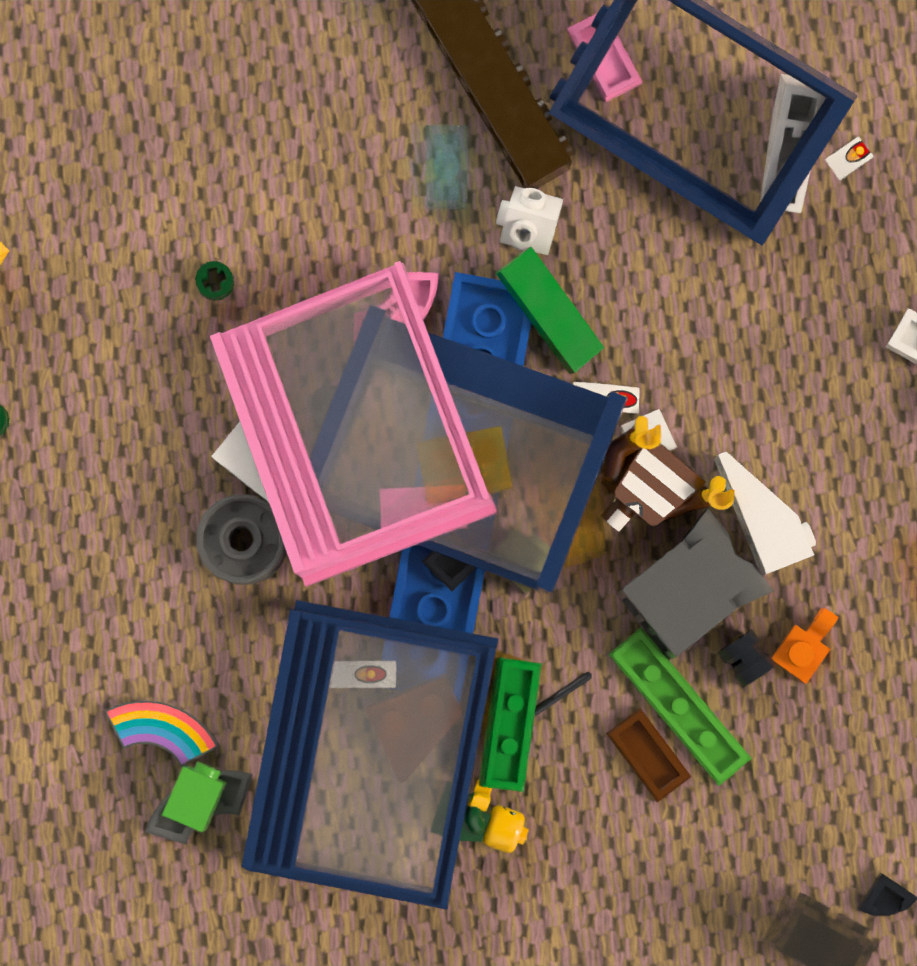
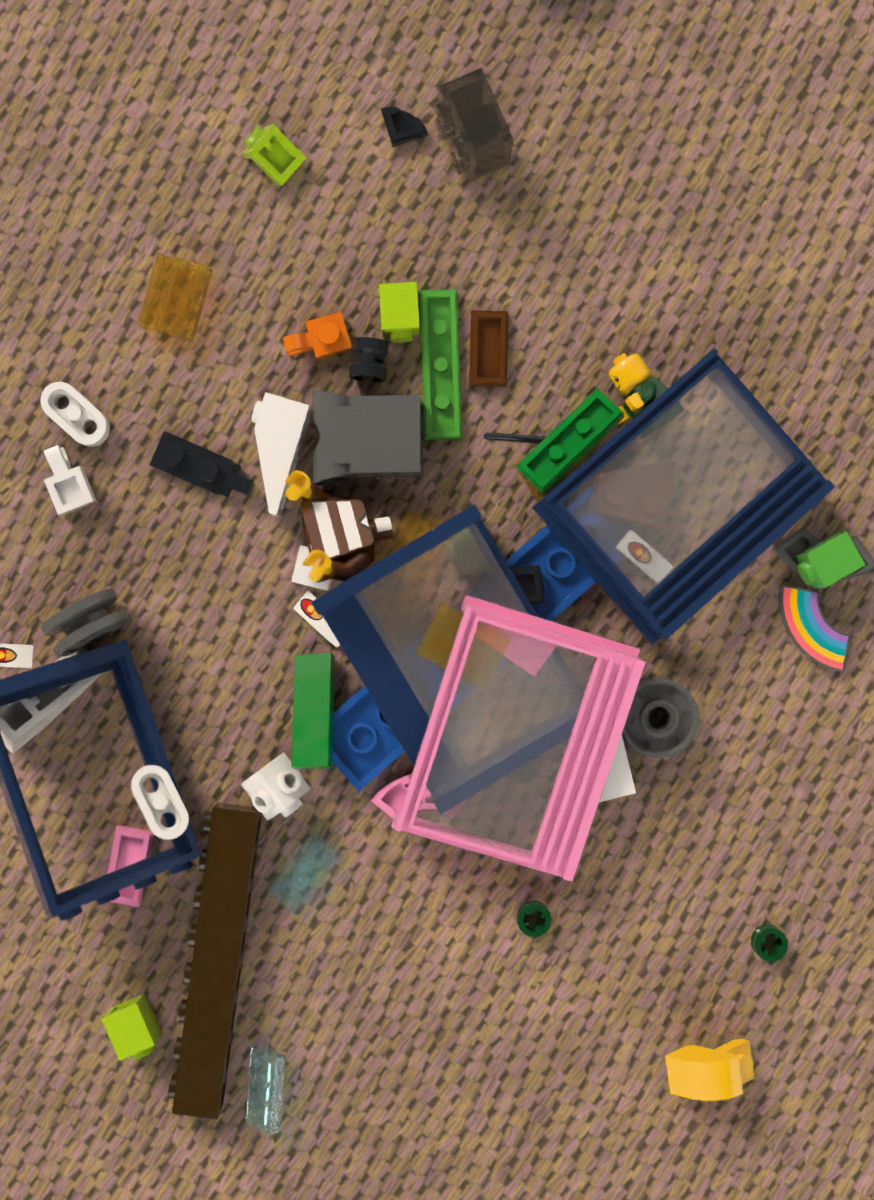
camera: 140 degrees left, 5 degrees up
(619, 132) = (161, 801): none -> white plate
(754, 723) = (399, 311): none -> lime brick
(807, 233) = (85, 622): none -> dark grey wheel
(820, 447) = (199, 466): none -> black hinge

